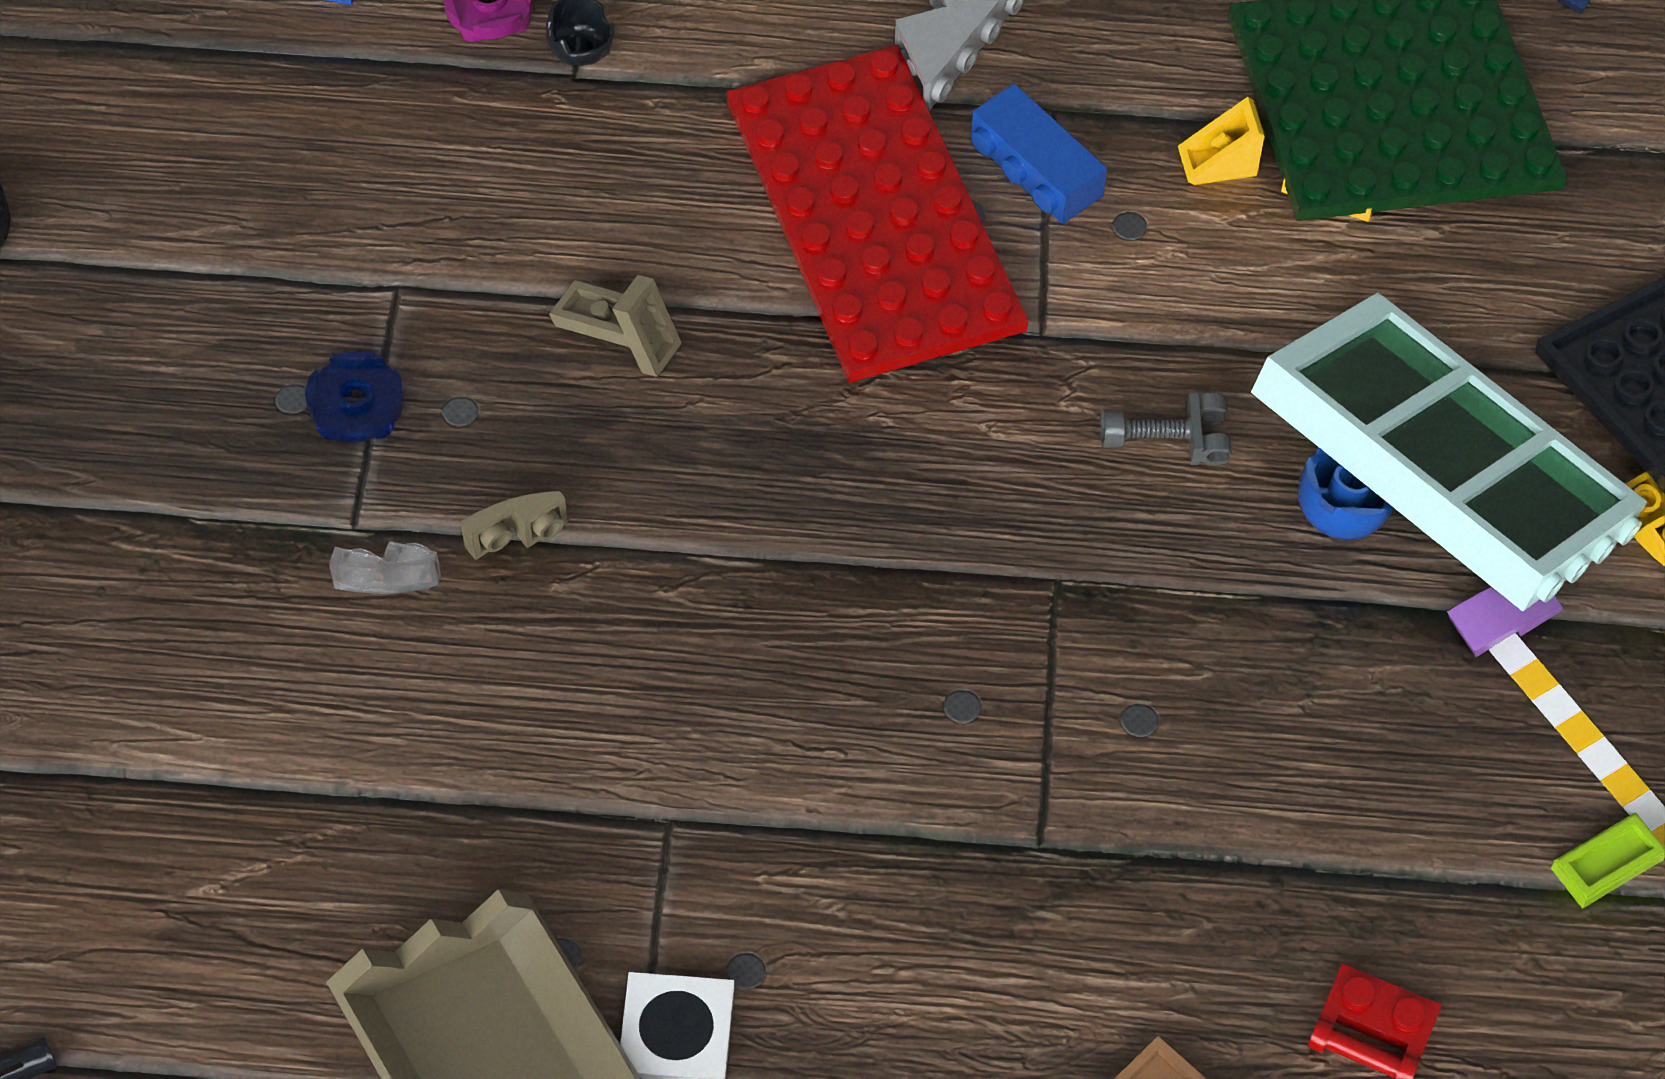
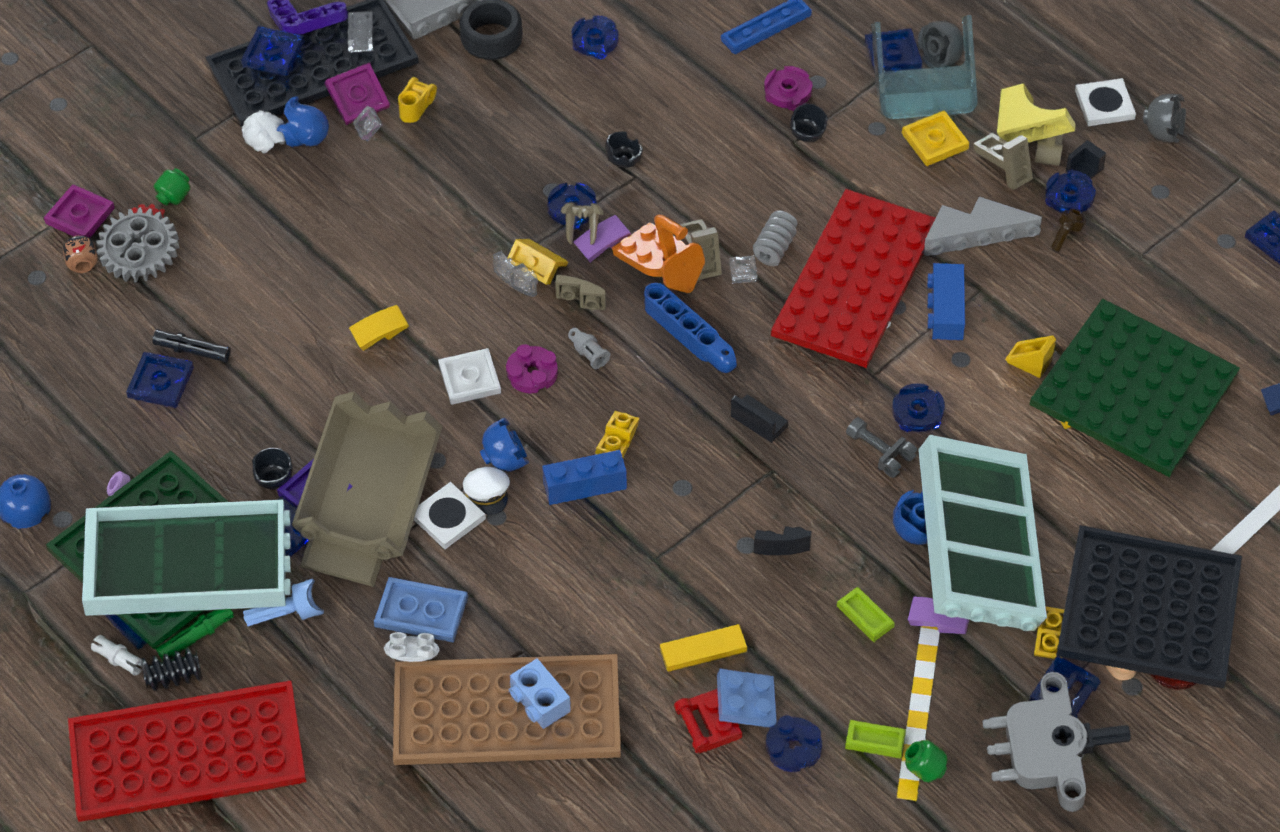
camera: 45 degrees right, 5 degrees down
(120, 137) = (599, 46): none -> clear blue plate
(257, 813) = (381, 324): none -> yellow slope
(350, 260) = (622, 150): none -> black hair
(392, 517) = (536, 258): none -> yellow panel
(397, 395) = (591, 211): none -> dark tan piece
(457, 415) = (608, 235): none -> medium lavender slope
(476, 782) = (469, 376): none -> white tile
(560, 670) = (531, 356): none -> magenta plate
(578, 373) = (662, 255): none -> orange plate
(604, 596) = (587, 346): none -> light grey piece
(659, 854) = (503, 447): none -> blue cylinder
(695, 936) = (487, 489): none -> white piece
(710, 313) = (743, 269): none -> clear plate
(711, 233) = (775, 238): none -> light grey piece
(714, 443) = (688, 327): none -> blue piece
(795, 703) = (618, 433): none -> yellow slope
(824, 802) = (584, 477): none -> blue brick
(963, 517) = (758, 417): none -> black panel
(1158, 359) = (915, 420): none -> clear blue plate
(1202, 666) = (792, 541): none -> black slope
(1251, 923) = (703, 648): none -> yellow tile
(1397, 948) = (746, 698): none -> medium blue plate
(1404, 689) = (865, 614): none -> lime tile
(1509, 986) = (797, 729): none -> clear blue plate

